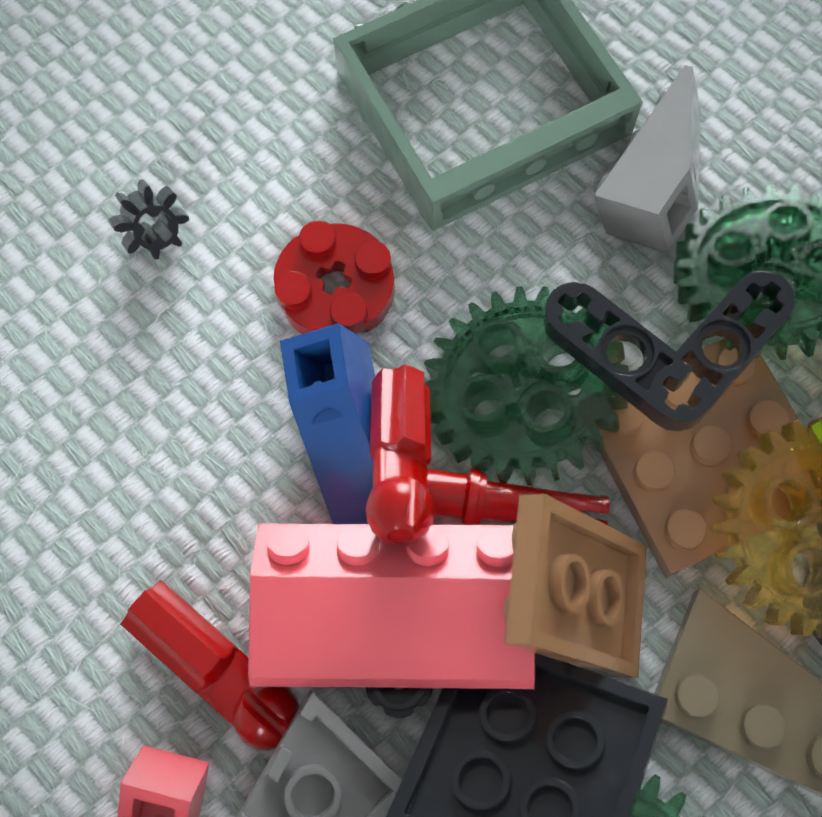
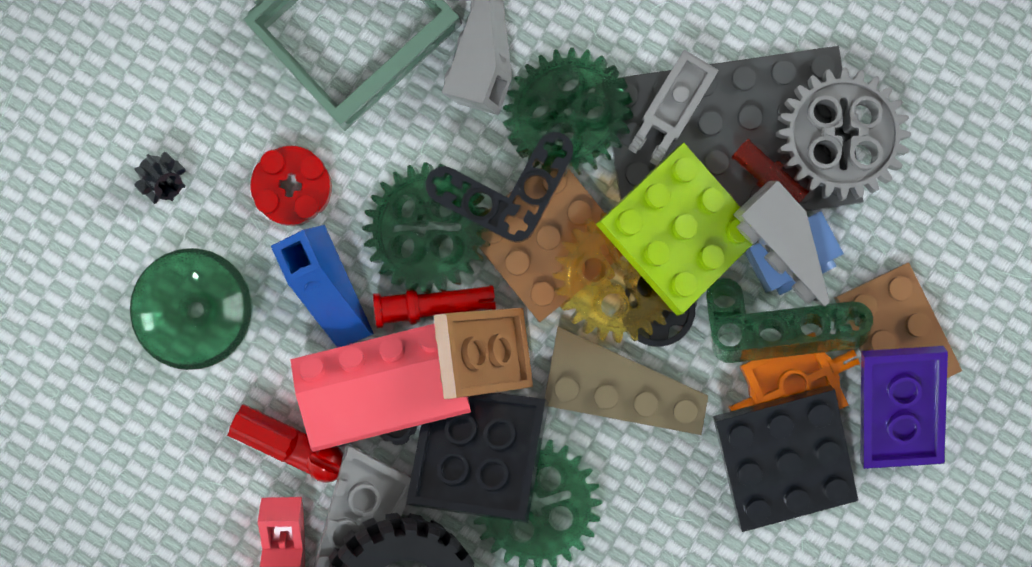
camera: 10 degrees left, 15 degrees up
(105, 382) = (164, 303): none -> clear green dish
(400, 445) = (362, 298): red piece -> none

